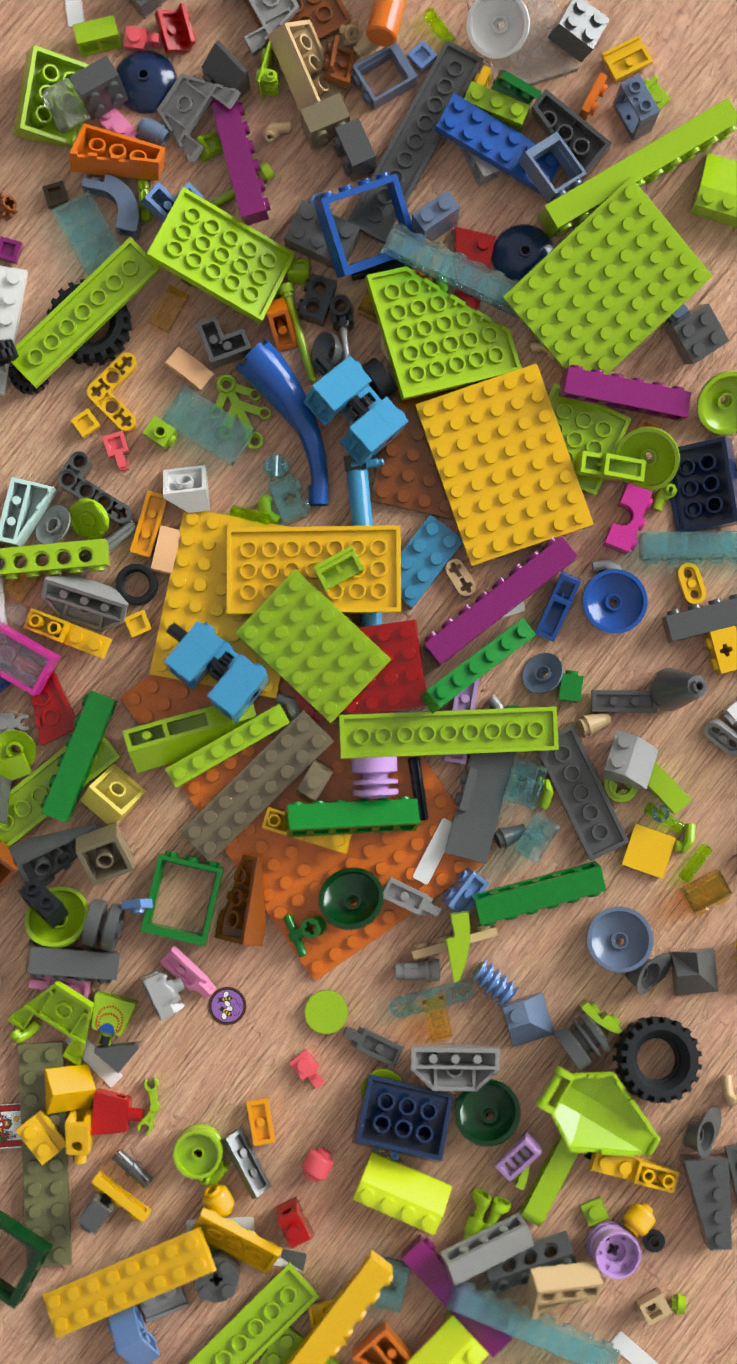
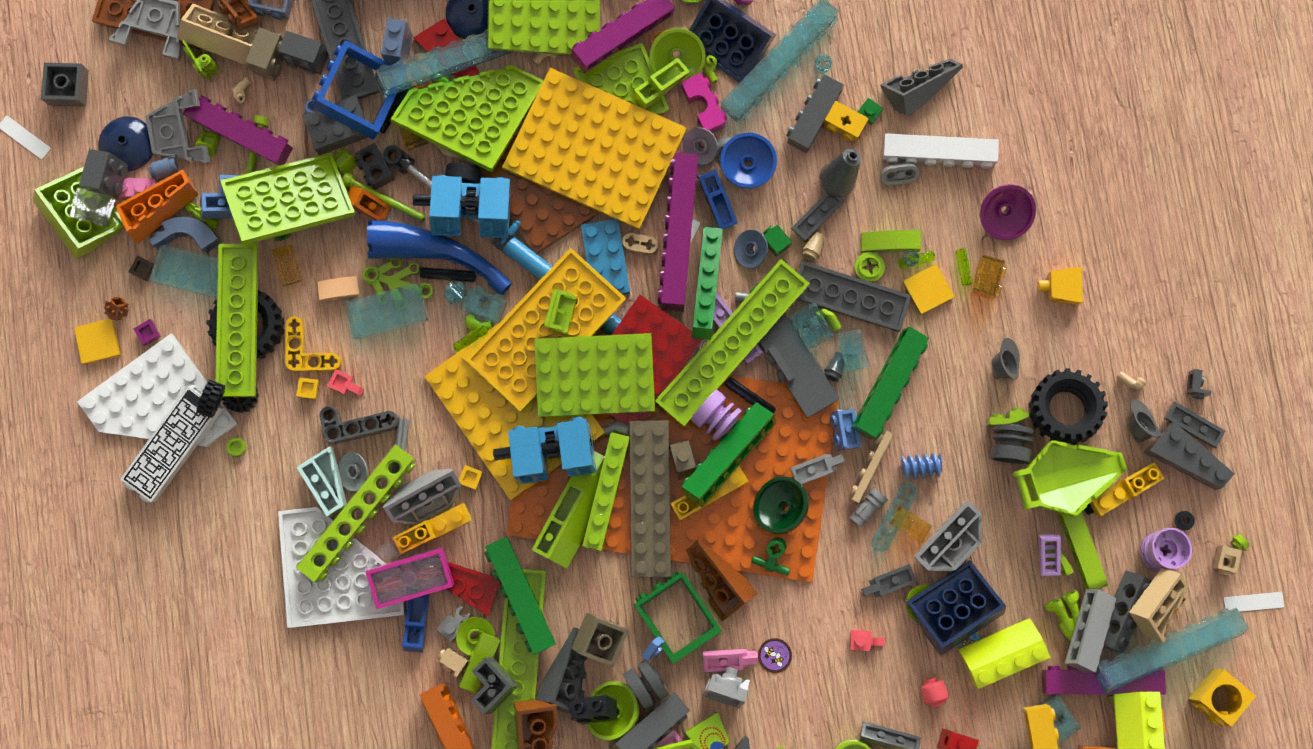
camera: 40 degrees left, 5 degrees down
(22, 586) = (373, 529): clear yellow plate -> none
(89, 518) = (372, 444): lime tile -> none
(97, 36) = (67, 145): lime hinge -> none
(112, 795) = (566, 599): light yellow slope -> none
(138, 38) = (95, 122): coral plate -> none
(149, 524) = (413, 409): light orange plate -> none
(153, 584) = (439, 440): black tyre -> none
(160, 433) = (362, 346): lime brick -> none
(165, 550) = (440, 414): light nougat slope -> none
(175, 30) = (113, 93): red bracket -> none
(187, 488) = (414, 362): white slope -> none
(222, 348) = (343, 256): dark grey brick -> none
(225, 69) = (170, 85): dark grey slope -> none
(261, 1121) = (871, 703): light orange plate -> none
(285, 445) = (447, 274): none -> black axle
(325, 345) = (408, 187): dark grey piece -> none
(326, 1011) = (839, 593): lime tile -> none
(433, 853) = (801, 426): white sticker -> none
(458, 943) = (875, 462): lime slope -> none
(475, 1106) = (995, 538): dark green dish -> none
(527, 1019) = (965, 467): sand blue slope -> none
(582, 546) = (692, 144): none -> light grey dish
(594, 1211) = (1130, 541): lime plate -> none
(624, 924) = (967, 346): sand blue dish -> none
(630, 760) = (860, 245): light grey slope -> none
(639, 1219) = (1161, 516): yellow head -> none
(688, 840) = (945, 258): lime arm -> none
(690, 584) = (783, 103): yellow plate -> none
(694, 971) = (1033, 333): dark grey slope -> none

